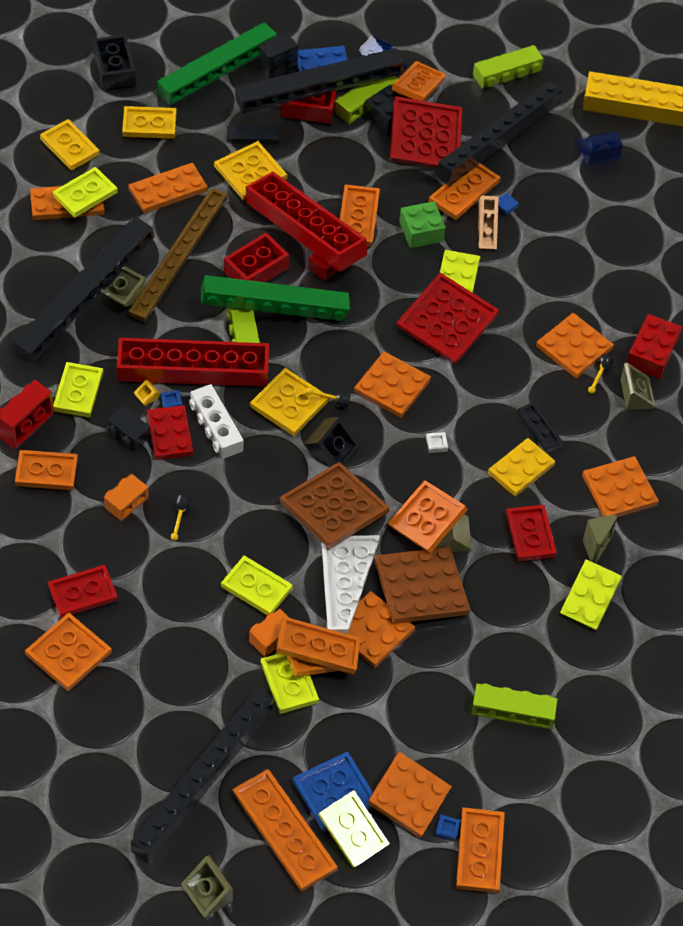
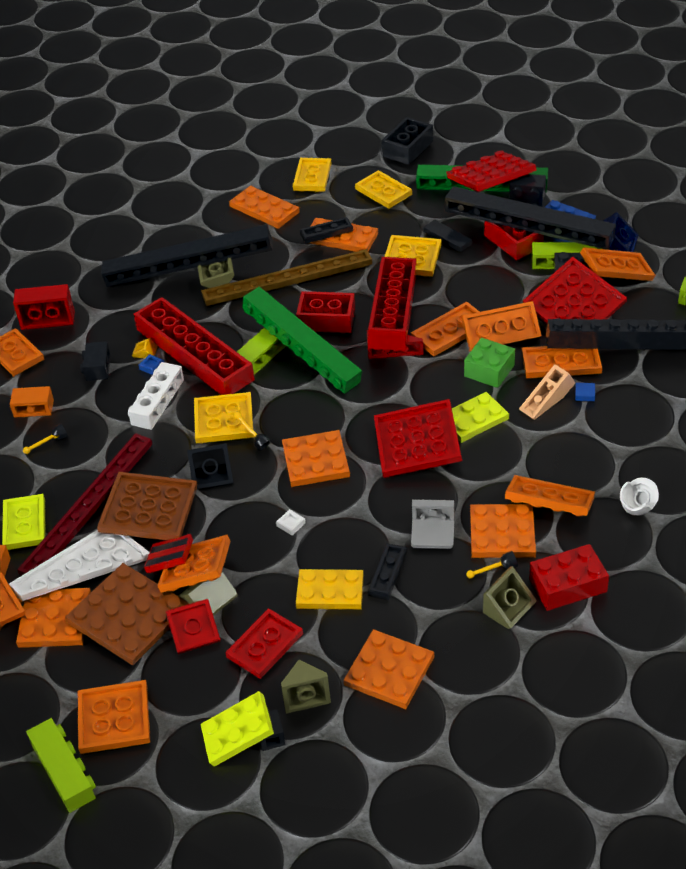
camera: 55 degrees right, 10 degrees down
(78, 389) = (103, 317): neon yellow plate -> none
(85, 192) = (274, 202): neon yellow plate -> none
(159, 191) = (326, 230): none -> black tile
(170, 432) = (120, 383): red plate -> none
(238, 54) = (490, 171): none -> red plate
(285, 540) = (87, 504): none -> dark red plate
(397, 189) = (502, 325): none -> orange plate
(397, 524) = (168, 553): none -> red tile
(475, 558) = (193, 626): none -> red tile
(503, 653) = (113, 717): none -> orange plate
(532, 374) = (432, 524): none -> light grey bracket
(579, 298) = (550, 495): none -> orange plate
(634, 258) = (639, 496): none -> white helmet

